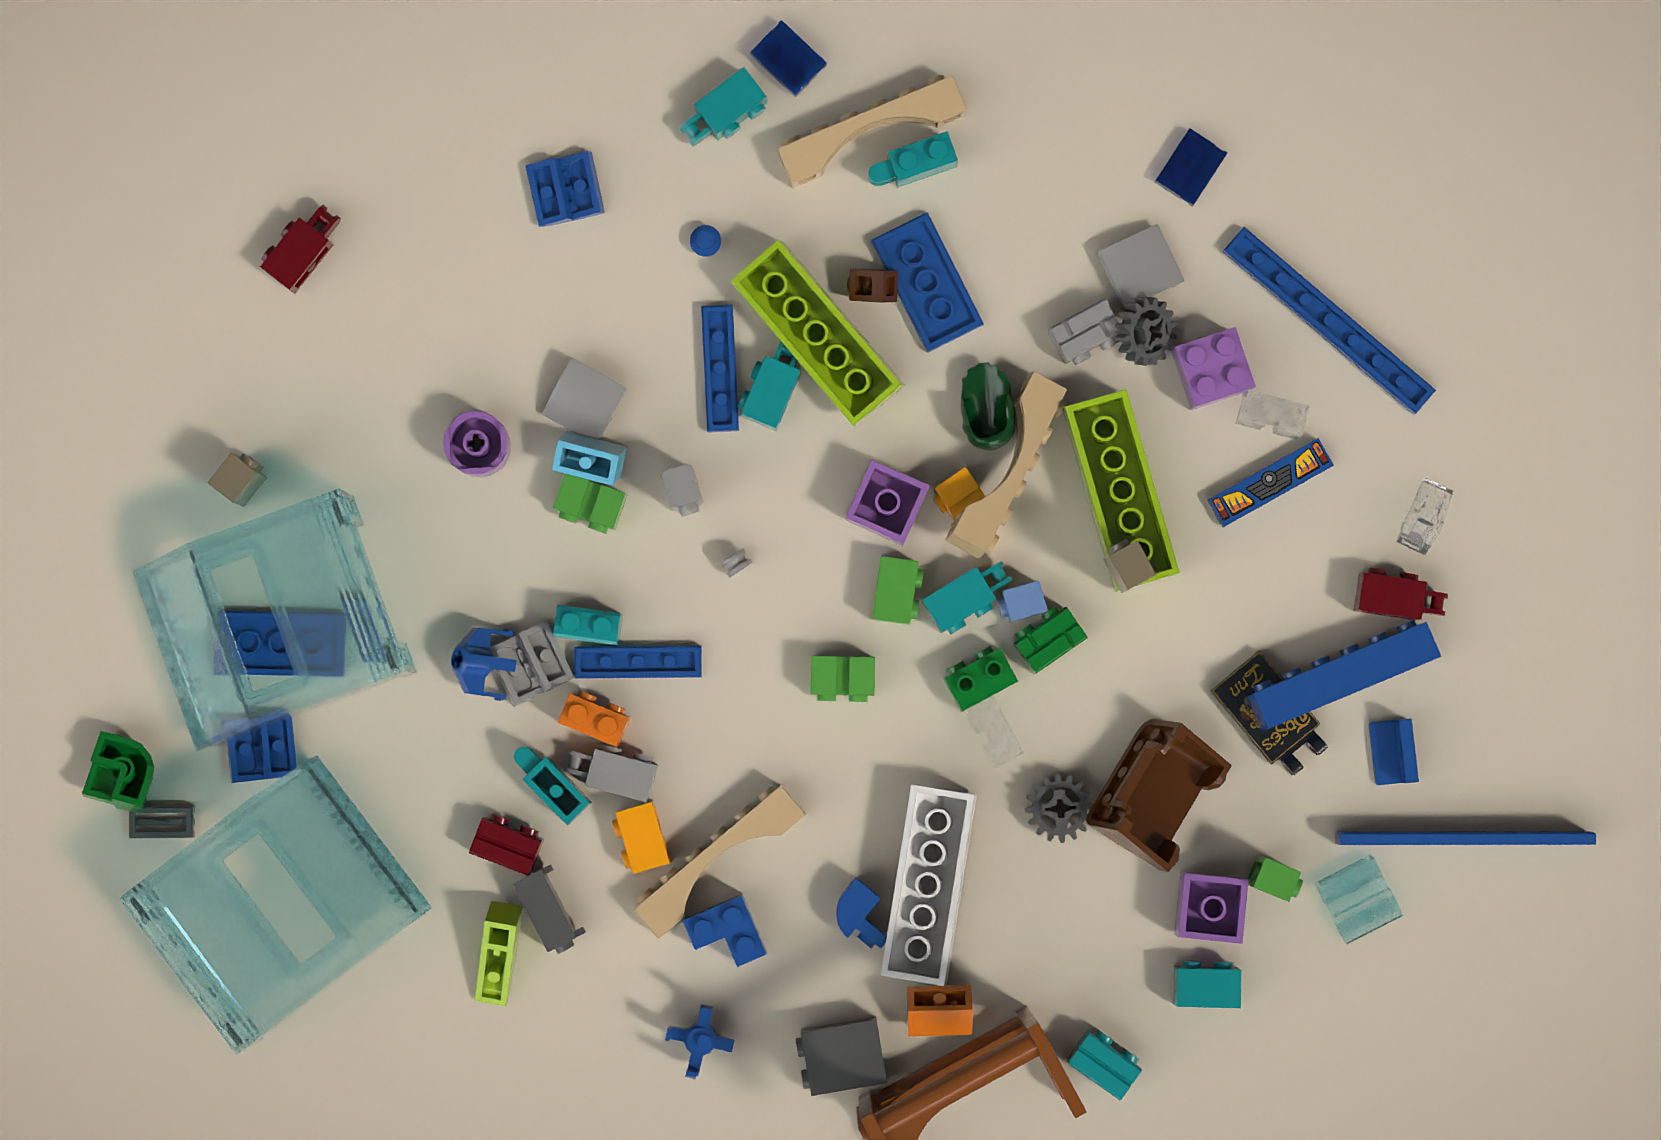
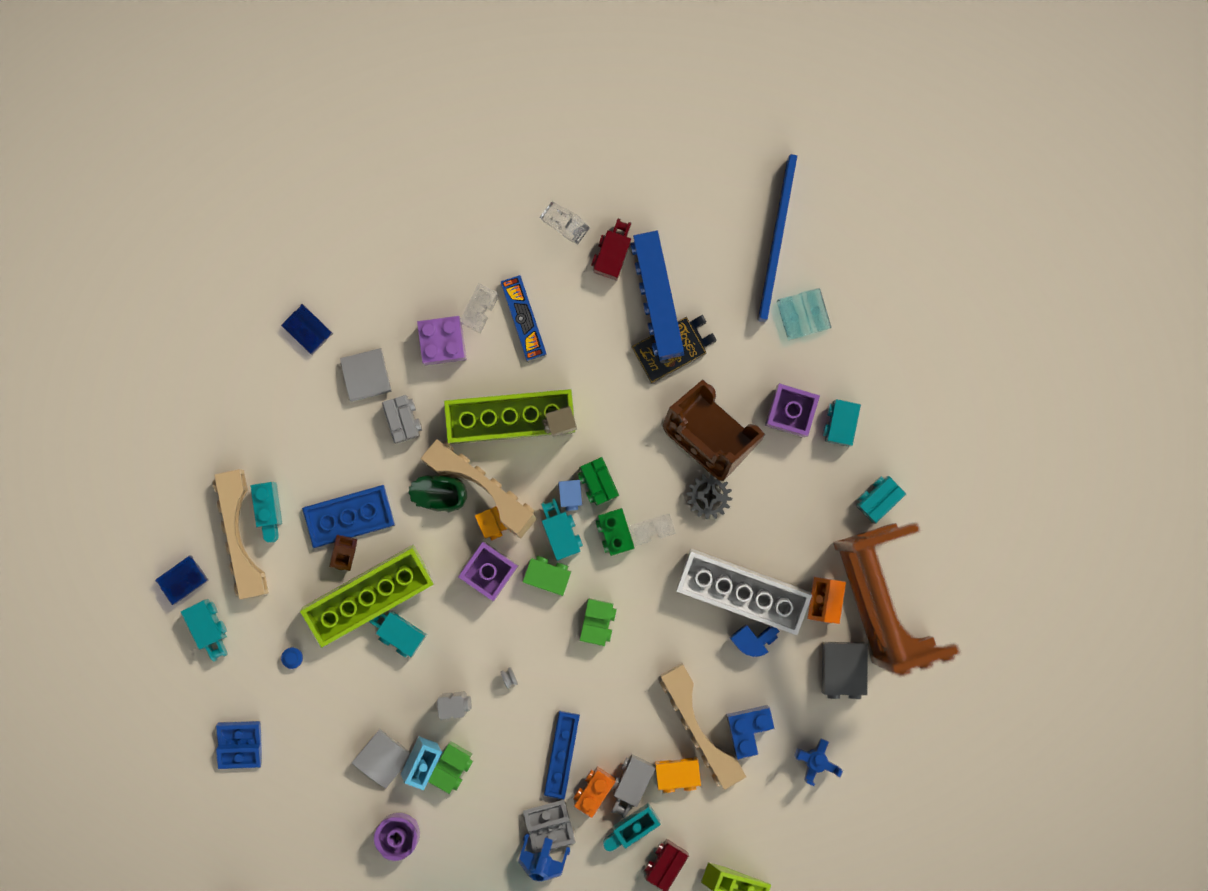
camera: 80 degrees left, 0 degrees up
(547, 911) = (714, 846): dark grey brick -> none
(587, 625) = (531, 784): teal brick -> none
(720, 368) = (378, 664): blue tile -> none
(1145, 331) = (408, 380): dark grey gear -> none
(1275, 878) = (781, 366): bright green brick -> none
(1329, 320) = (425, 259): blue tile -> none
(1393, 752) = (713, 273): blue panel -> none

